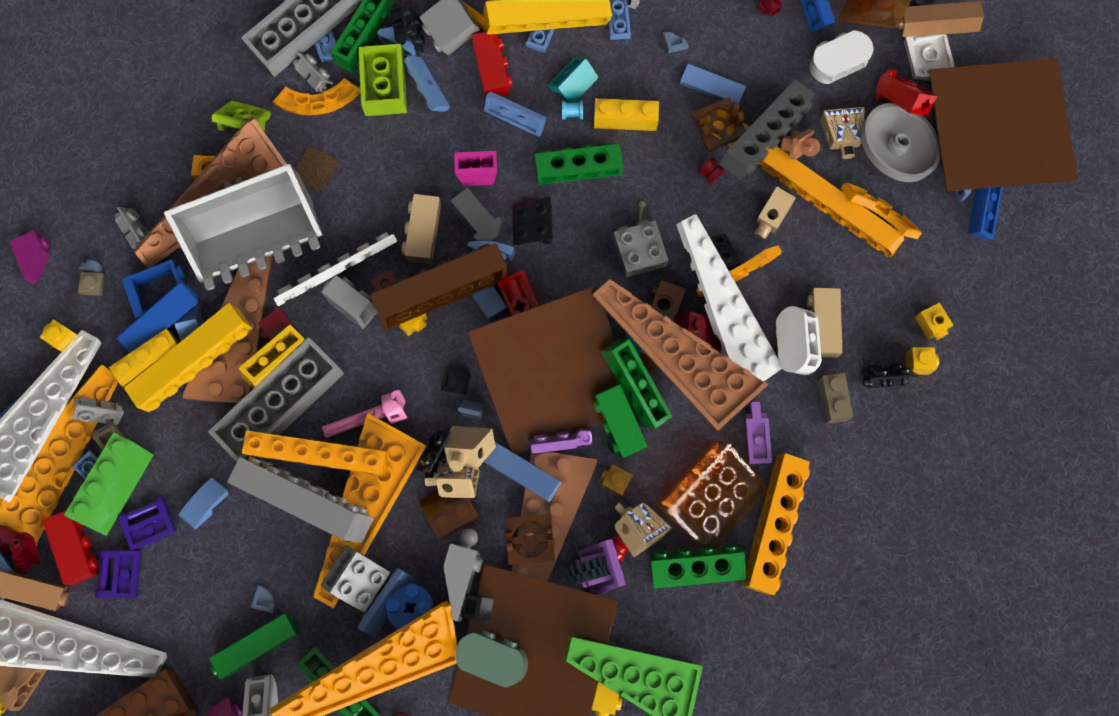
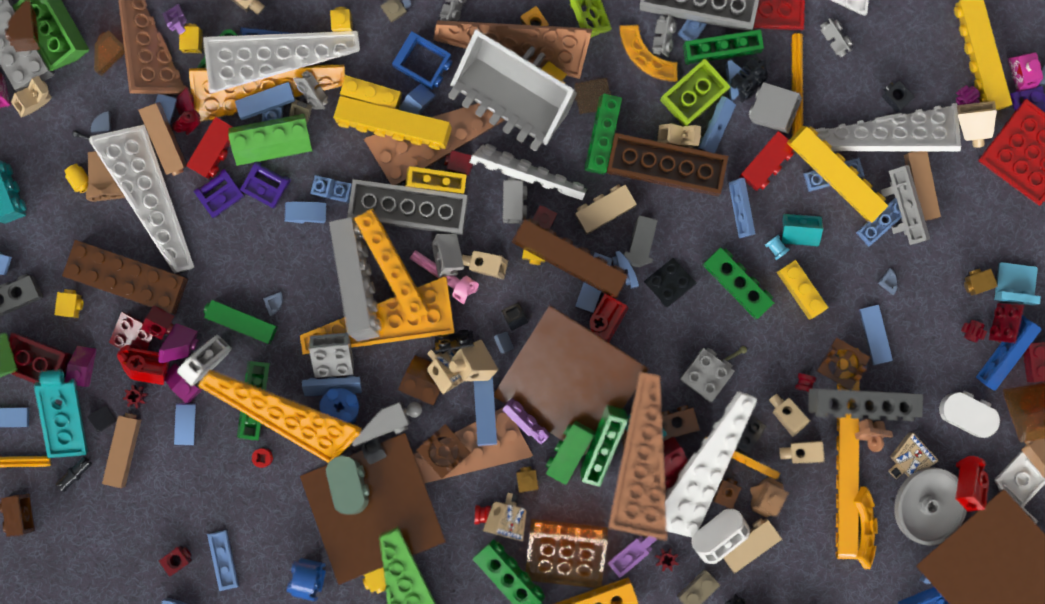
camera: 55 degrees right, 10 degrees up
(68, 461) = (265, 101): none -> medium blue tile
(158, 317) = (403, 79): blue slope -> none
(204, 462) = (331, 189): none -> medium blue slope
(349, 398) = (447, 254): none -> light grey hinge
(354, 182) = (603, 134): none -> green brick
(391, 363) = (492, 264): none -> tan torso
(409, 120) = (679, 135): none -> tan brick
(425, 147) = (667, 164): none -> reddish brown brick
(476, 167) = (676, 215): dark pink torso -> none
(596, 569) = (456, 511): medium lavender plate -> none
(730, 202) = (793, 422): none -> tan torso
(763, 307) = (727, 493): none -> reddish brown brick
(779, 409) = (661, 557): none -> dark red gear
(794, 273) = (768, 497): none -> medium nougat piece

